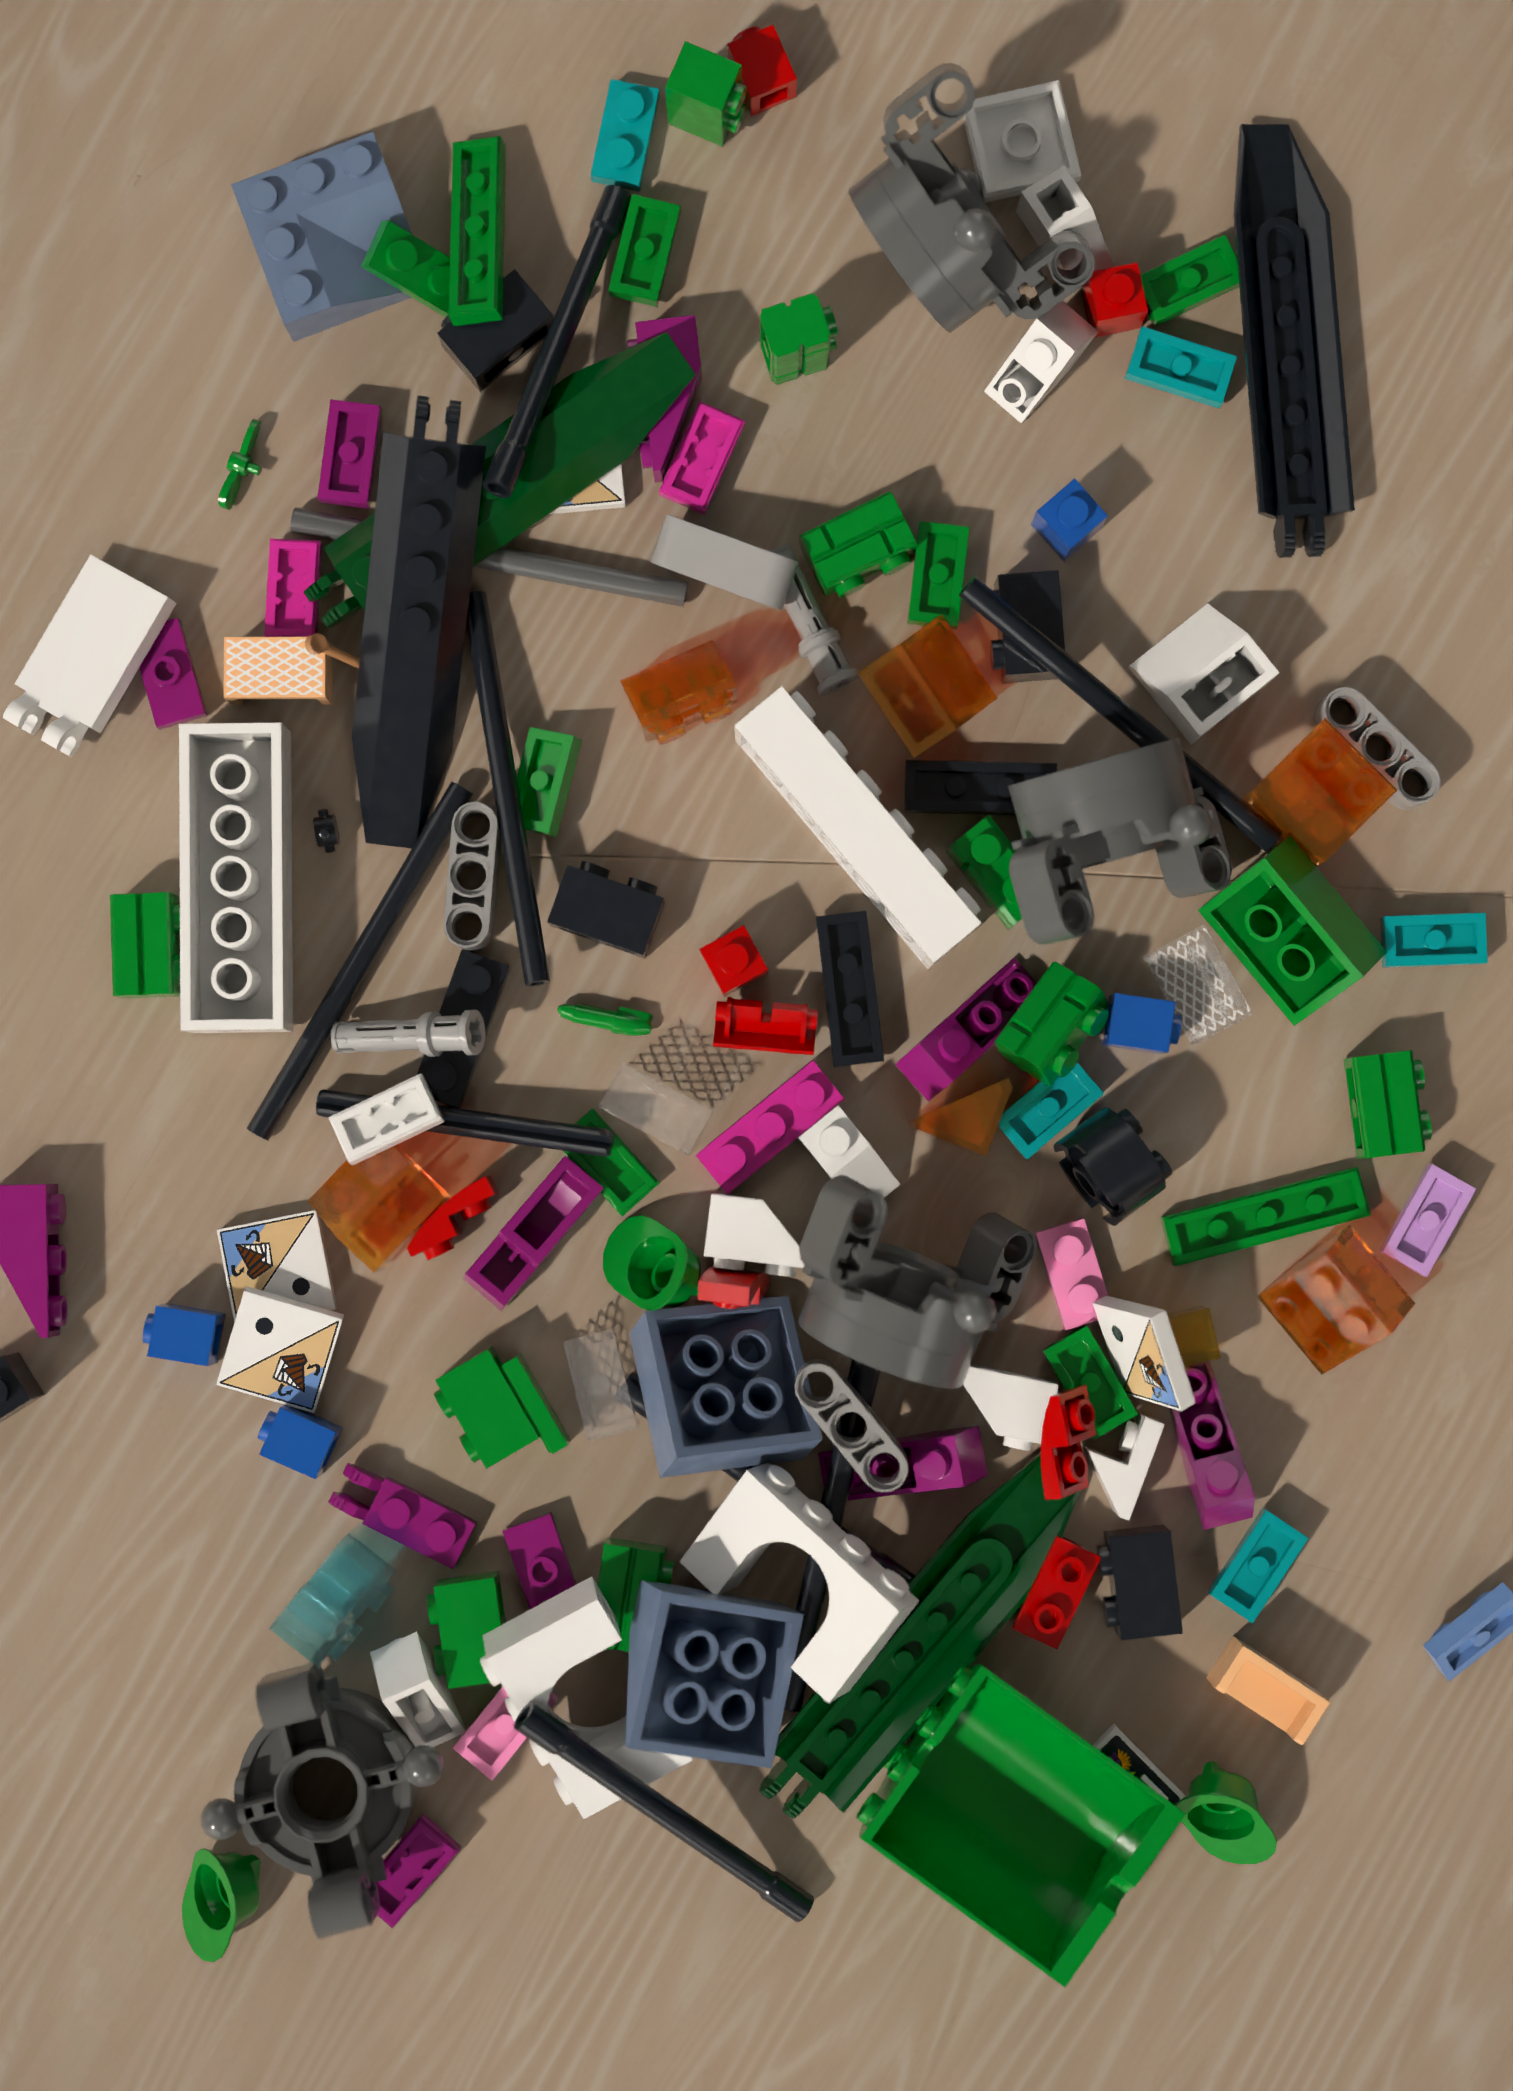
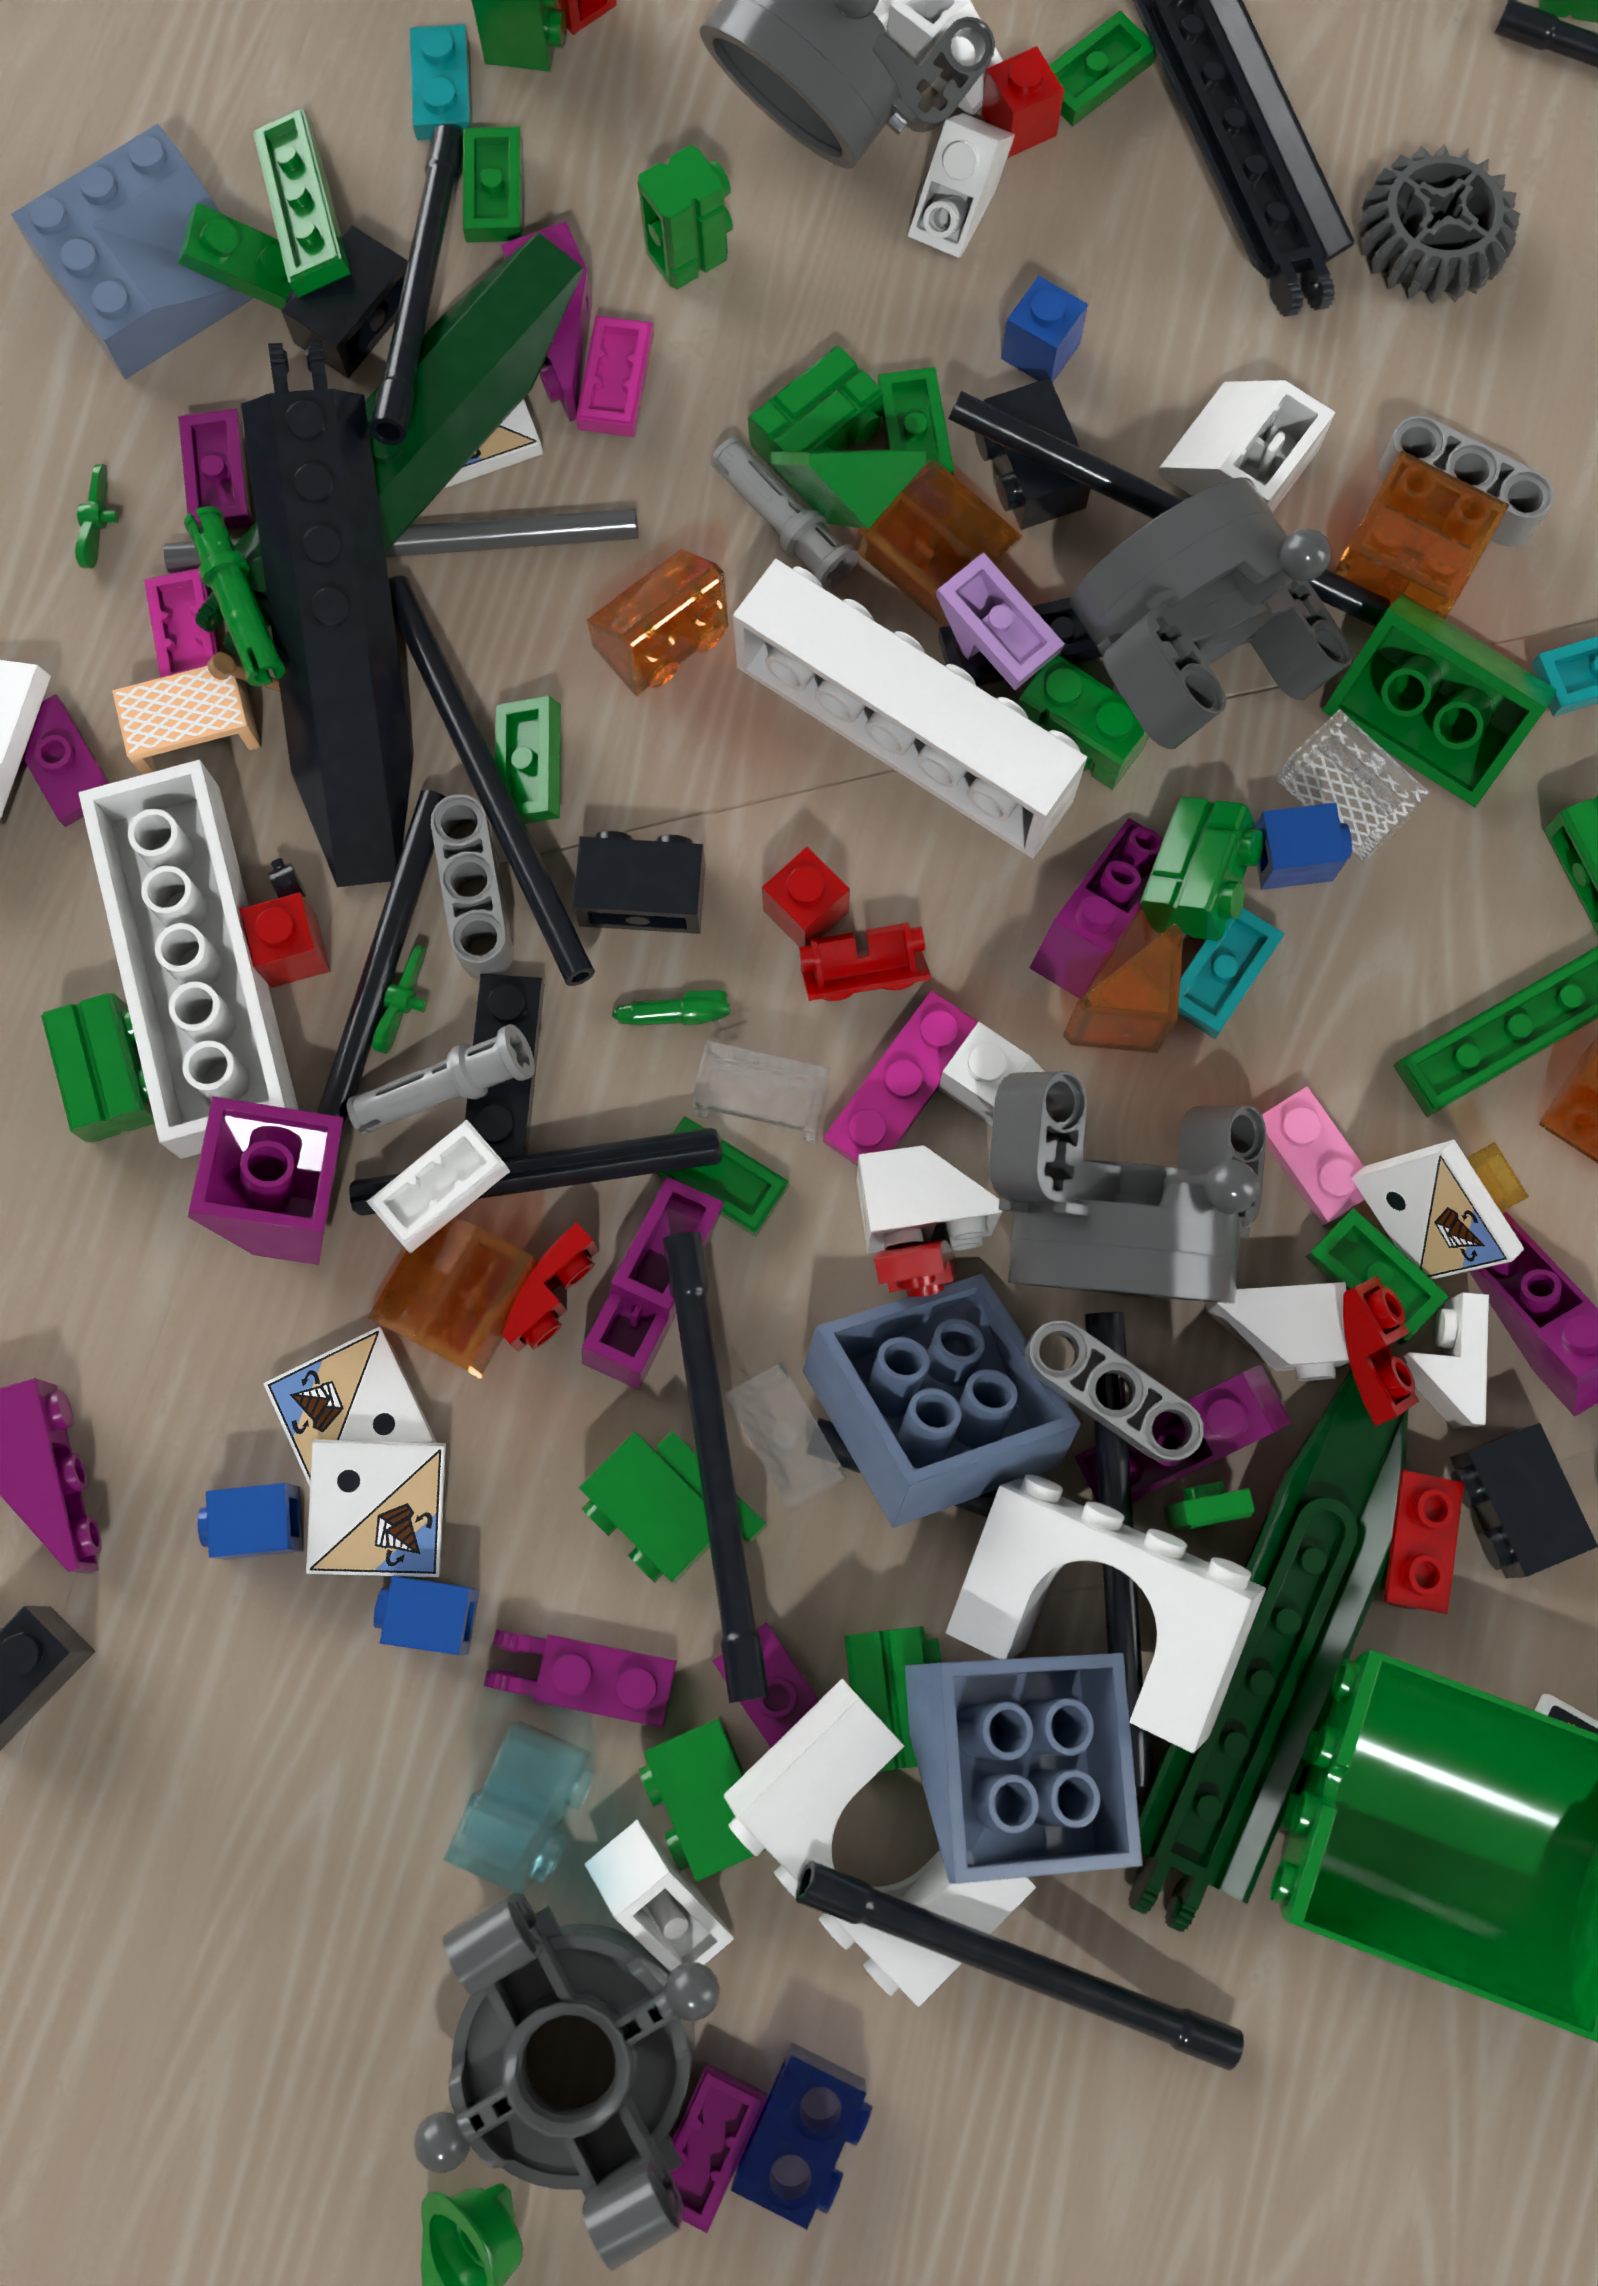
camera: 15 degrees left, 10 degrees down
(258, 1081) = (267, 1178): none -> magenta slope
(314, 881) = (284, 940): none -> red brick
(340, 587) = (225, 573): none -> green pin
(393, 951) = (400, 1000): none -> green piece
(469, 1876) = (790, 2131): none -> clear blue brick
(492, 1736) = (771, 1930): bright pink plate -> none
(525, 1528) = (740, 1640): none -> black piece
(650, 1264) = (807, 1276): green piece -> none
(724, 562) = (671, 467): light grey beam -> none
(849, 989) = (950, 898): black plate -> none
(868, 621) = (849, 484): none -> green slope
(901, 1525) = (1208, 1506): none -> green plate
(948, 783) = (998, 621): none -> lavender slope
(1112, 1164) = (1323, 1006): black brick -> none
(1180, 367) = (1115, 154): teal plate -> none
(1442, 526) = (1438, 224): none -> dark grey gear

